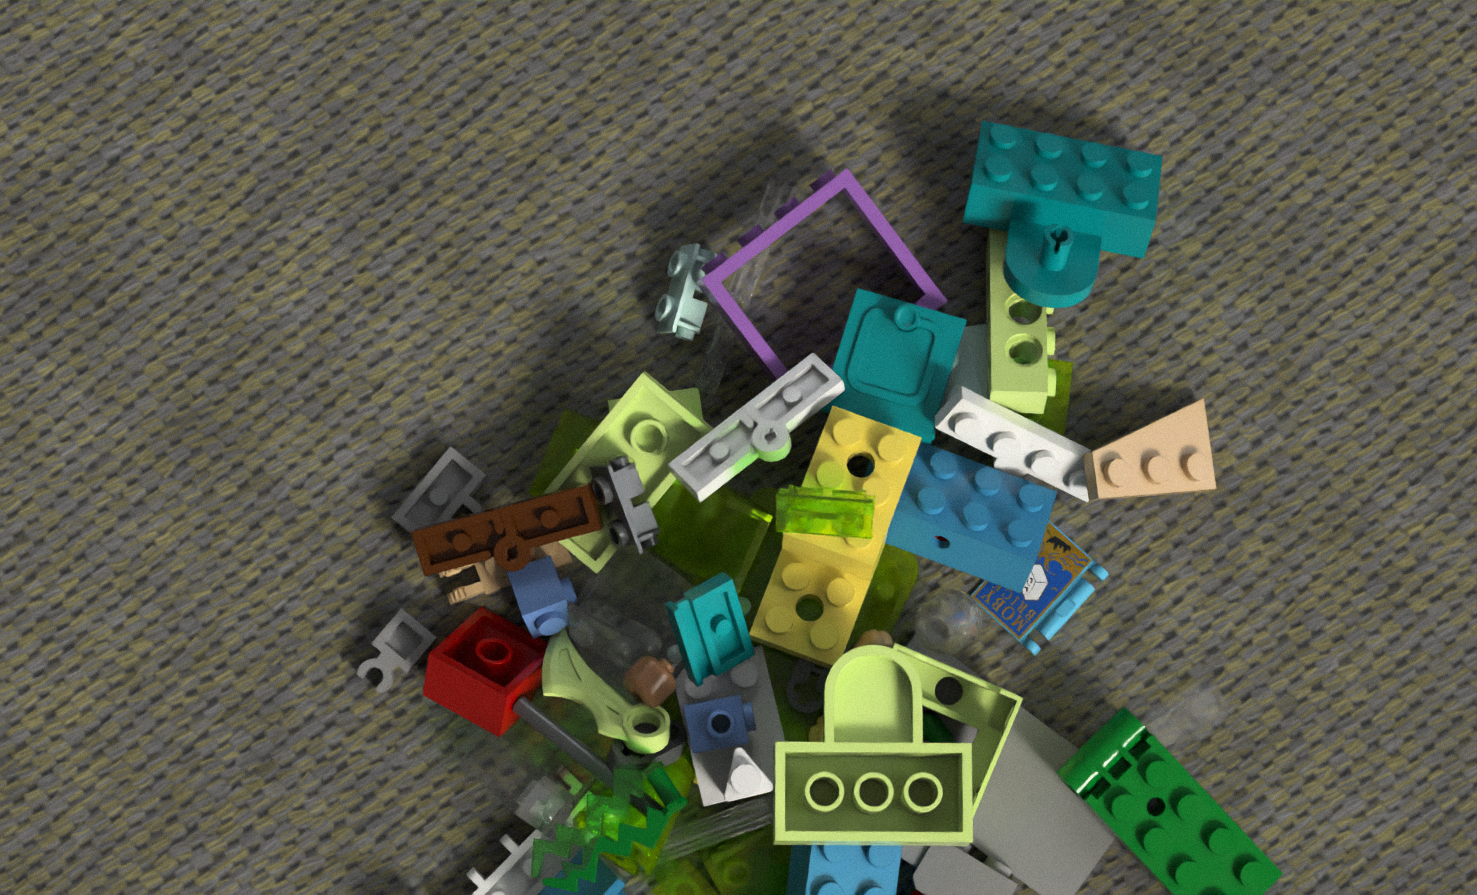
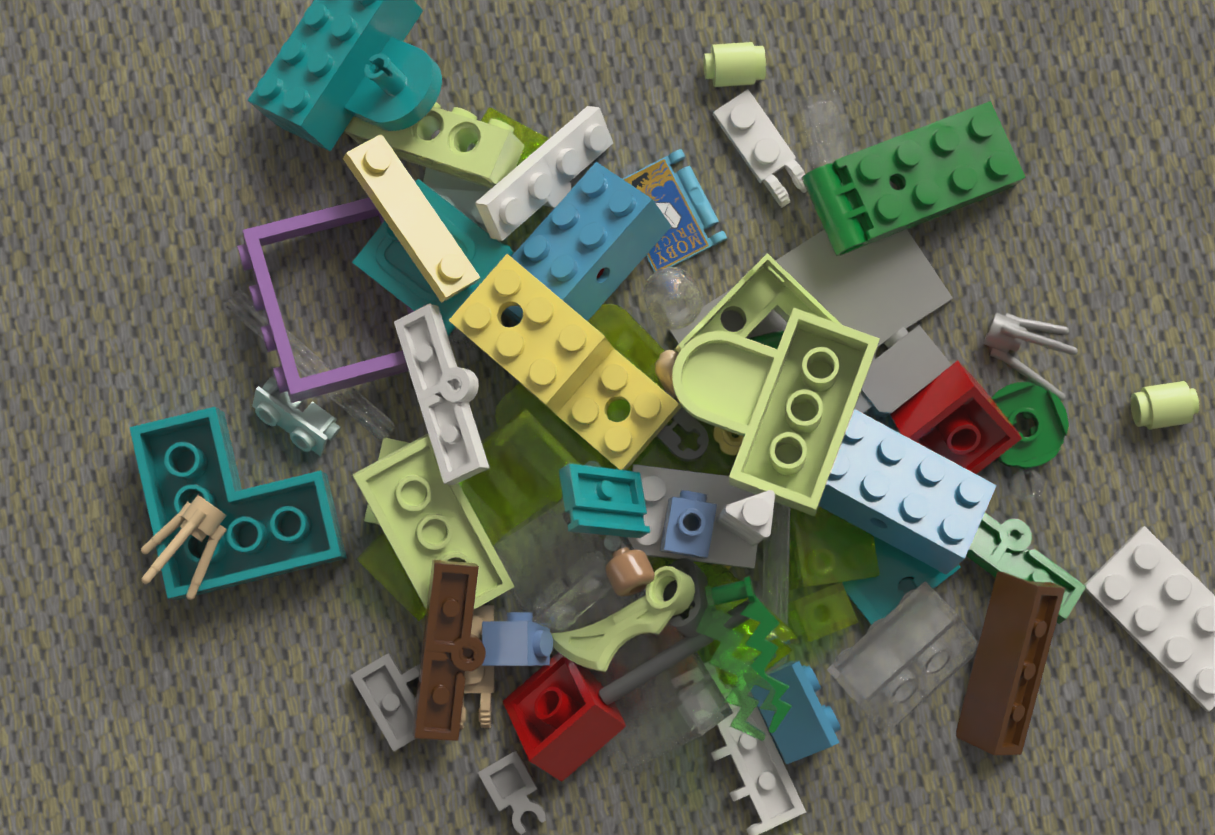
camera: 75 degrees left, 0 degrees up
(542, 239) = (197, 519): none -> tan plant
(542, 259) = (268, 526): none -> teal brick
(629, 526) = (484, 540): dark grey hinge -> none
(809, 512) = (549, 345): clear neon green hinge -> none
(922, 329) = (411, 218): none -> light yellow plate
(1146, 650) = (759, 144): none -> white hinge
(1156, 459) = (599, 70): tan wing -> none
(1217, 595) = (735, 64): none -> yellowish green brick

